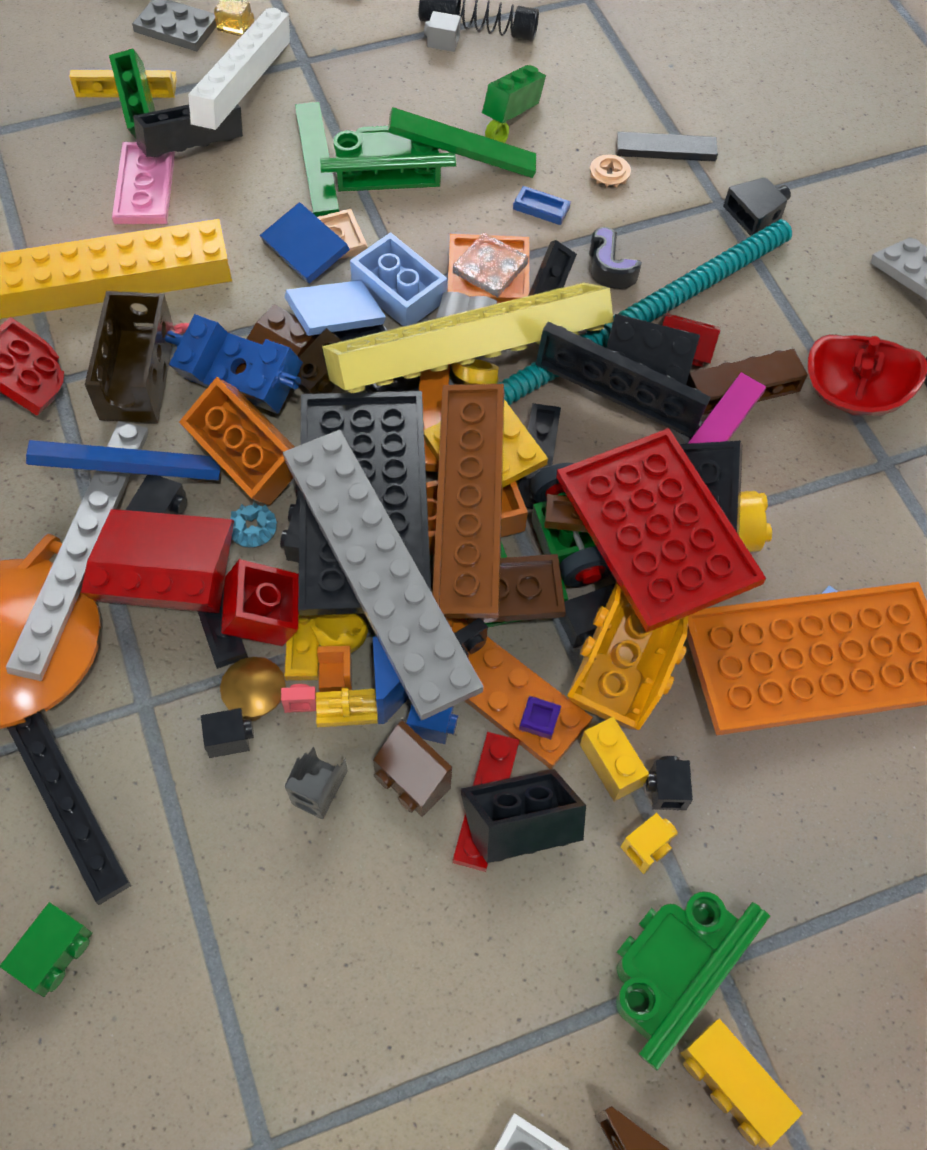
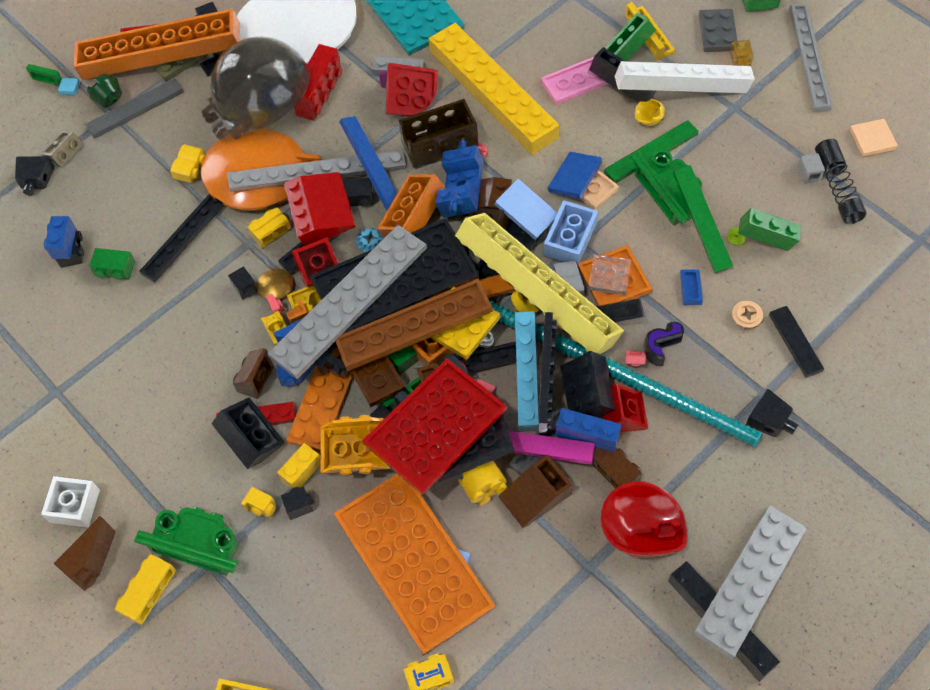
camera: 75 degrees right, 0 degrees up
(138, 656) = (269, 227): none -> yellow brick
(260, 129) = (649, 112): none -> yellow hair
(314, 783) = (229, 331): dark grey piece -> none
(540, 717) = (307, 421): dark purple tile -> none
(585, 401) = (527, 371): none -> medium azure brick
(622, 293) = (634, 358): none -> coral plate
(724, 365) = (587, 428): none -> blue brick
(774, 467) = (536, 491): none -> reddish brown slope

